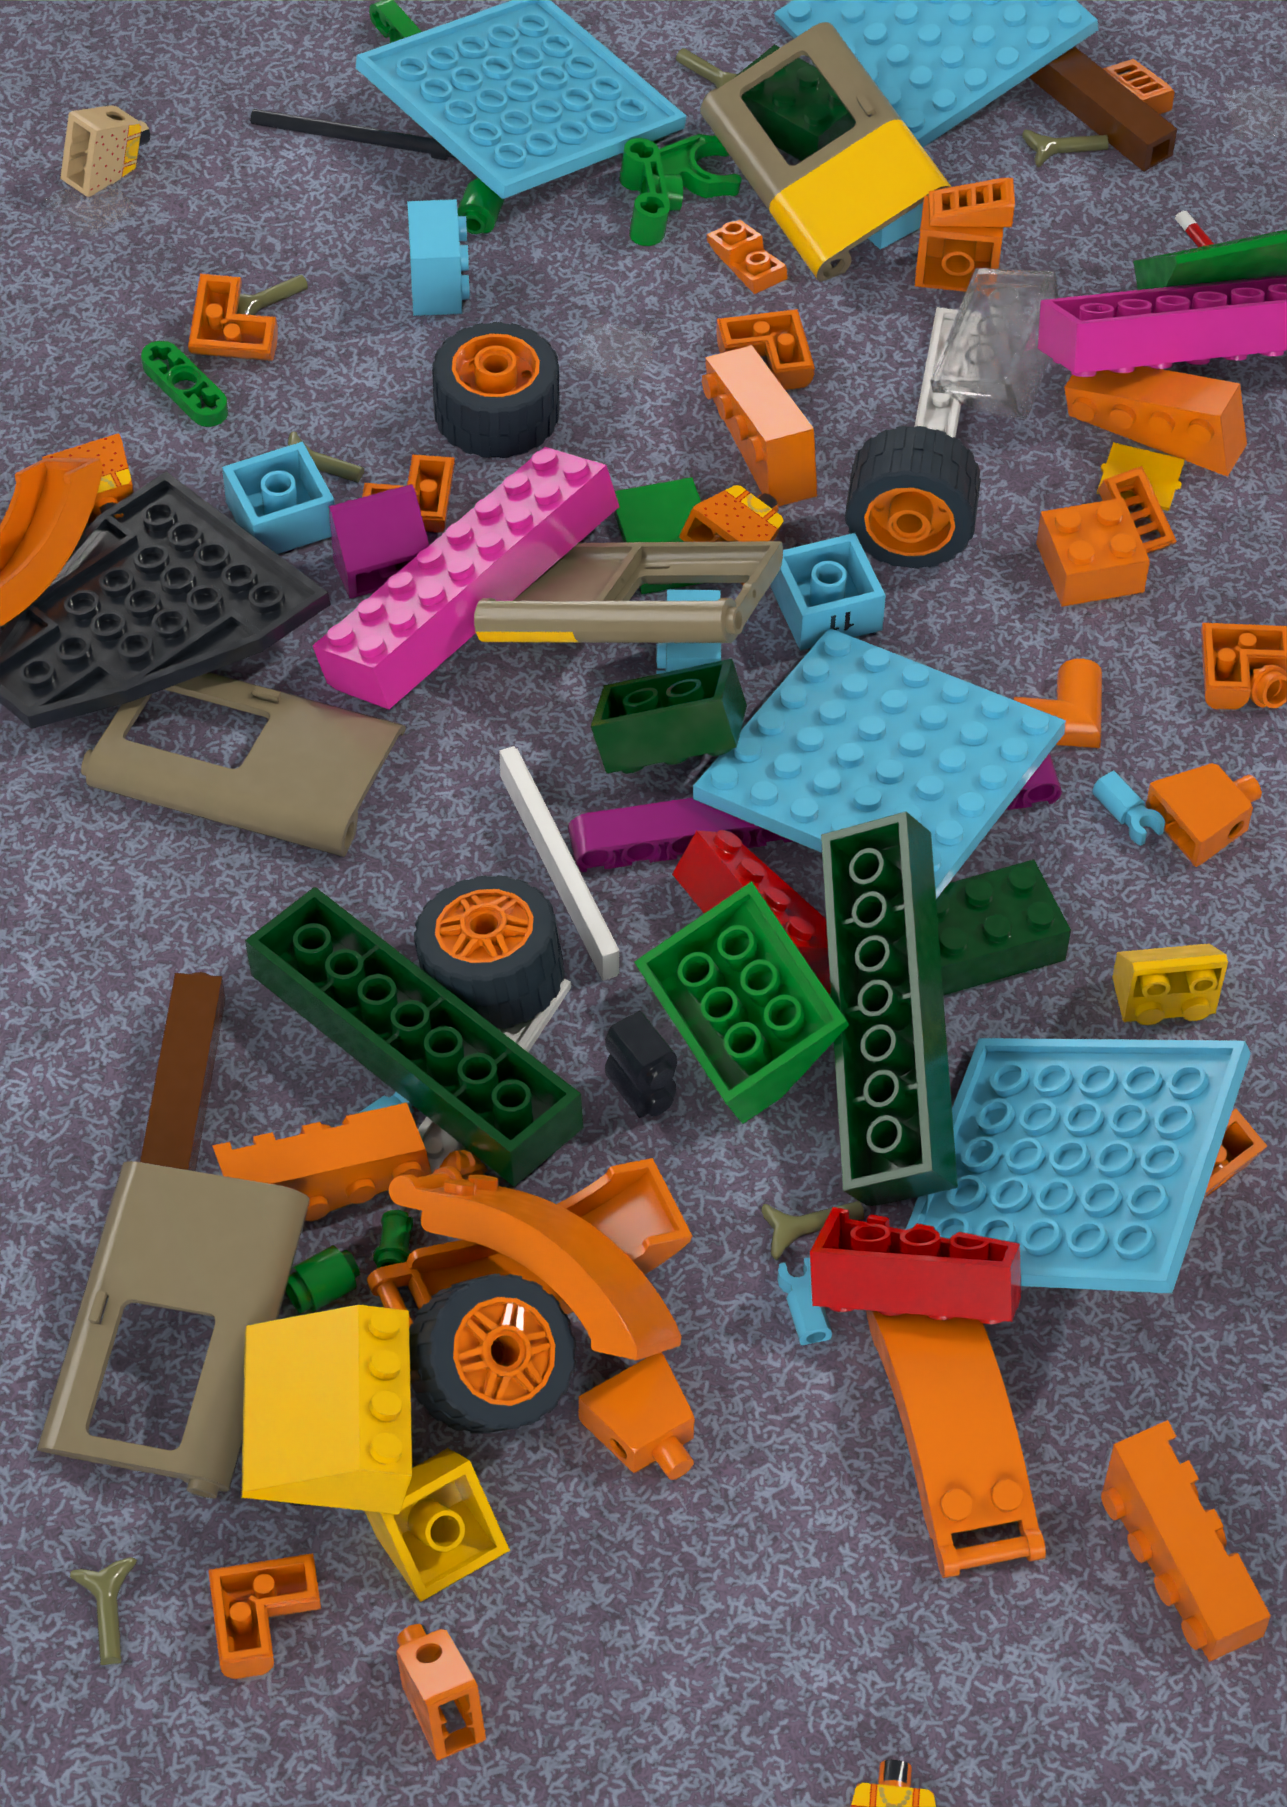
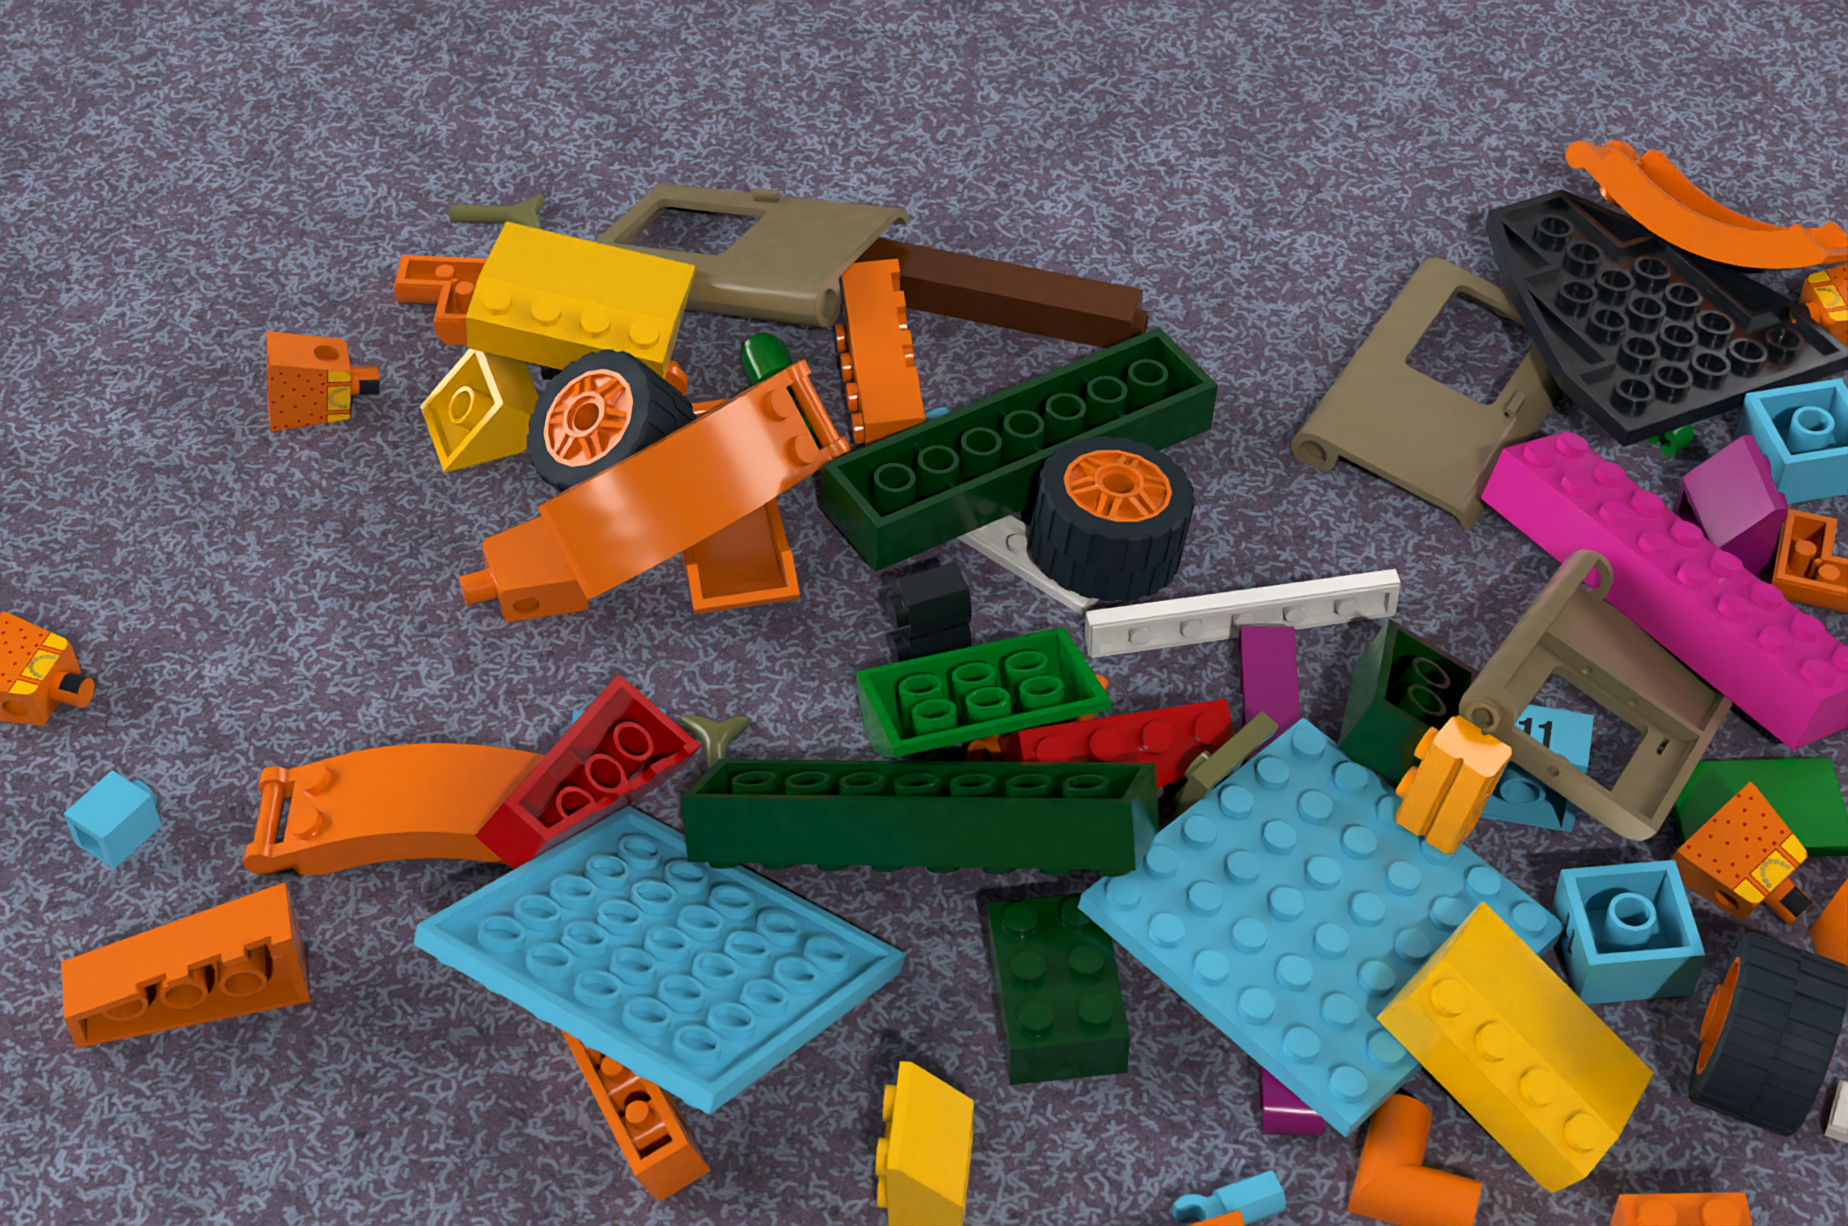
camera: 105 degrees right, 5 degrees down
(768, 829) = (1211, 770): none -> olive wing
(769, 662) = (1451, 783): none -> light orange brick
(965, 635) = (1519, 1050): none -> yellow slope
(1034, 1678) = (113, 818): none -> medium azure brick

